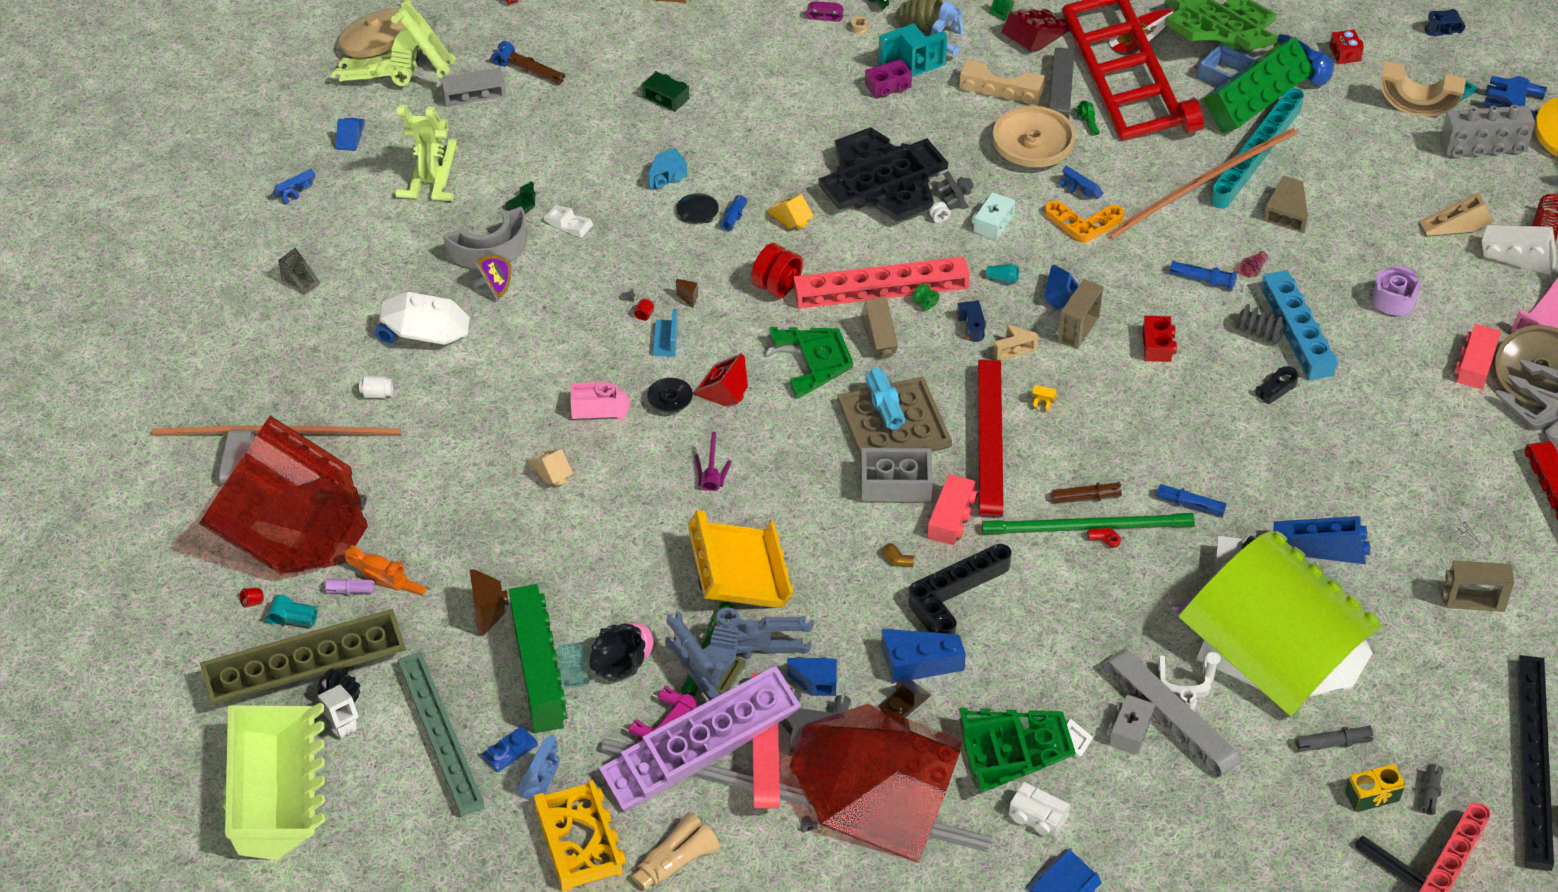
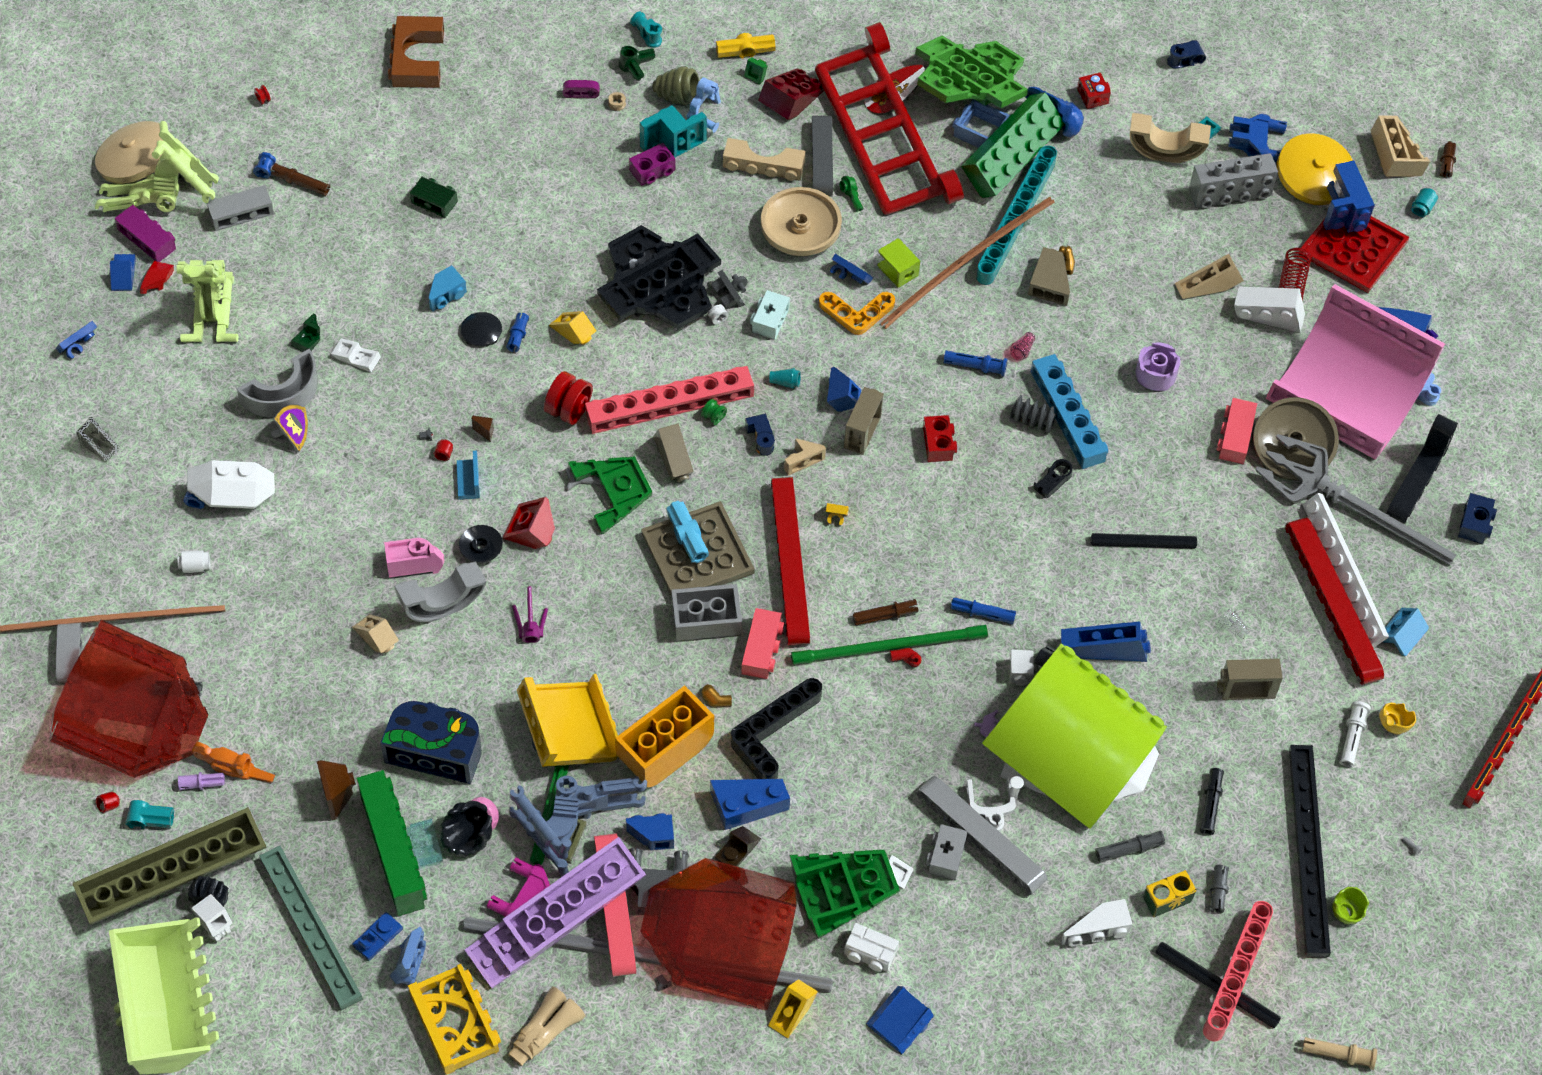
camera: 10 degrees left, 10 degrees up
(375, 101) = (145, 233): none -> magenta brick
(381, 139) = (156, 276): none -> red slope
(593, 567) = (433, 741): none -> dark blue brick
(625, 440) = (444, 598): none -> light grey brick
(839, 582) = (666, 737): none -> light orange brick
(946, 860) = (792, 1007): none -> yellow slope
(1131, 180) = (899, 263): none -> lime piece
(1297, 809) = (1104, 921): none -> white slope
(1309, 190) = (1069, 258): none -> pearl gold arm
(1370, 450) = (1143, 540): none -> black axle
(1433, 682) = (1212, 801): none -> black pin

